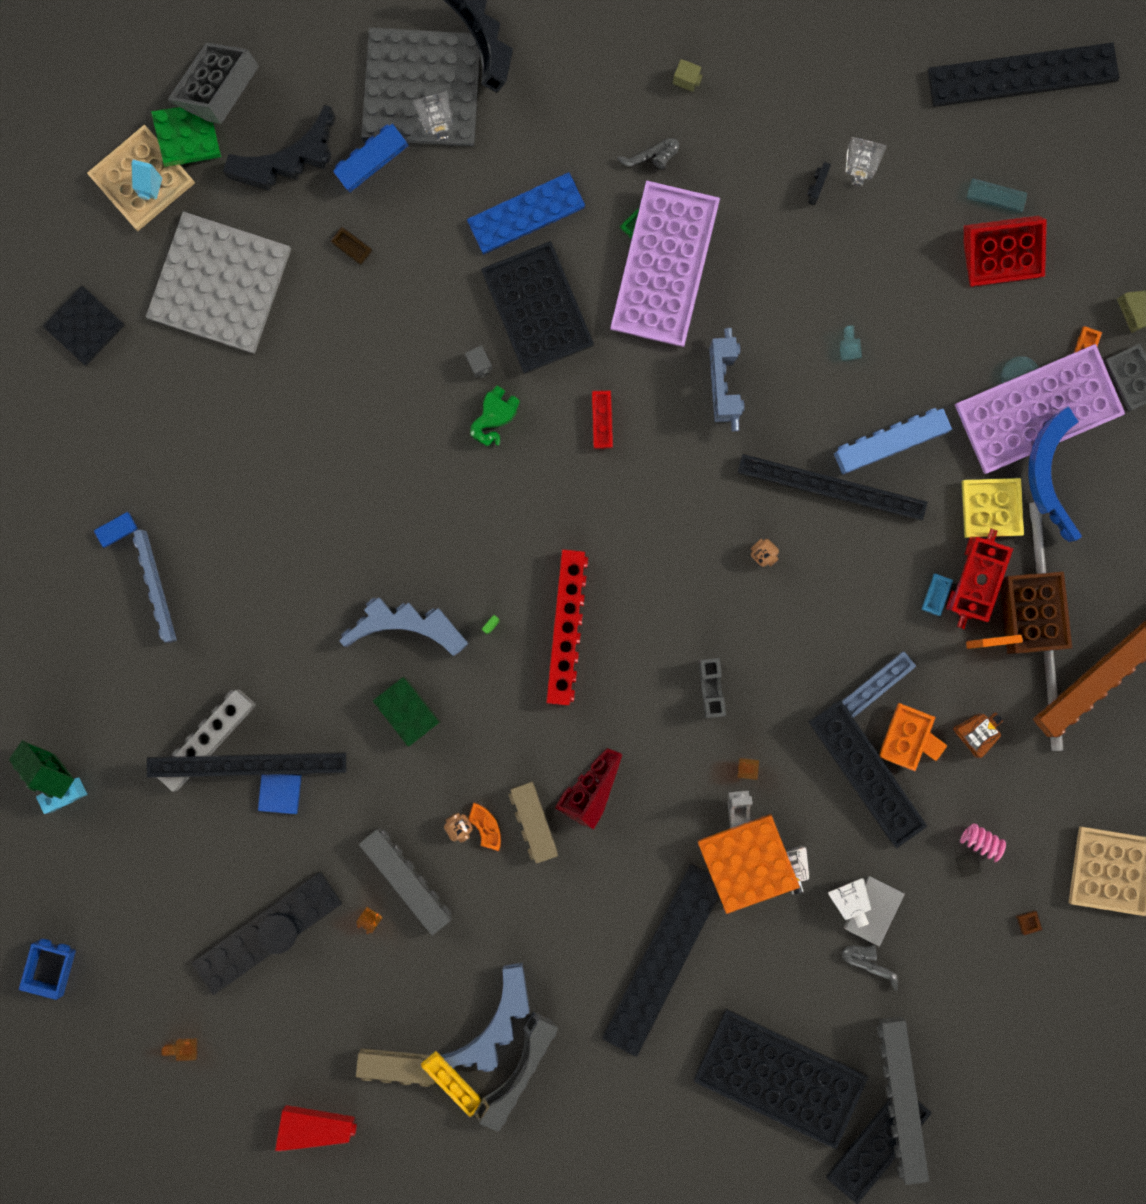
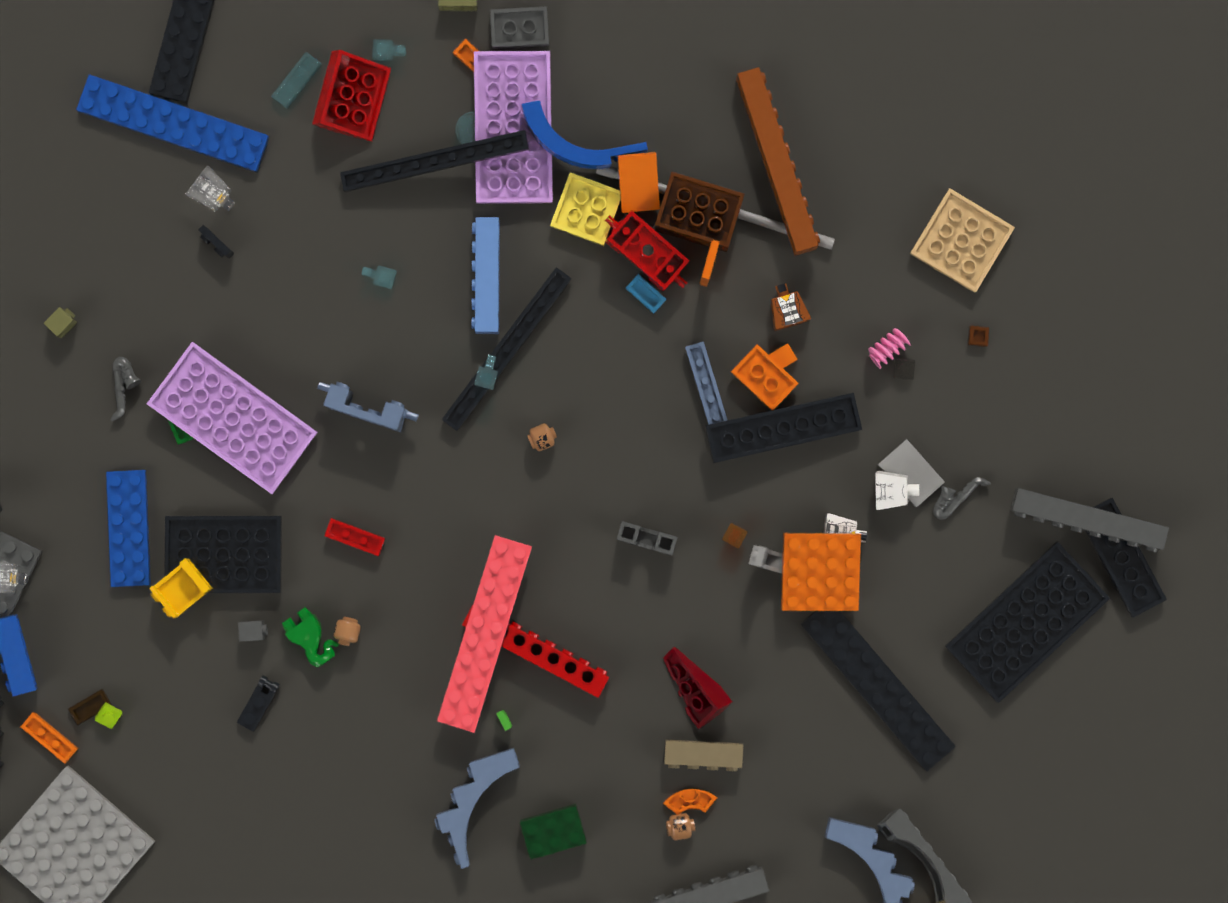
camera: 70 degrees left, 0 degrees up
(309, 221) = (49, 737): none -> orange tile
(350, 264) = (108, 715): none -> lime plate
(414, 395) = (258, 704): none -> black plate
(490, 281) = (180, 589): none -> yellow panel
(513, 447) = (347, 631): none -> medium nougat head
(563, 573) = (484, 634): none -> coral plate
(801, 478) = (487, 376): none -> clear light blue plate
(910, 101) = (172, 123): none -> blue plate
(979, 350) = (434, 161): none -> black plate
(1040, 545) = (638, 182): none -> orange tile
(1060, 263) = (385, 50): none -> clear light blue plate

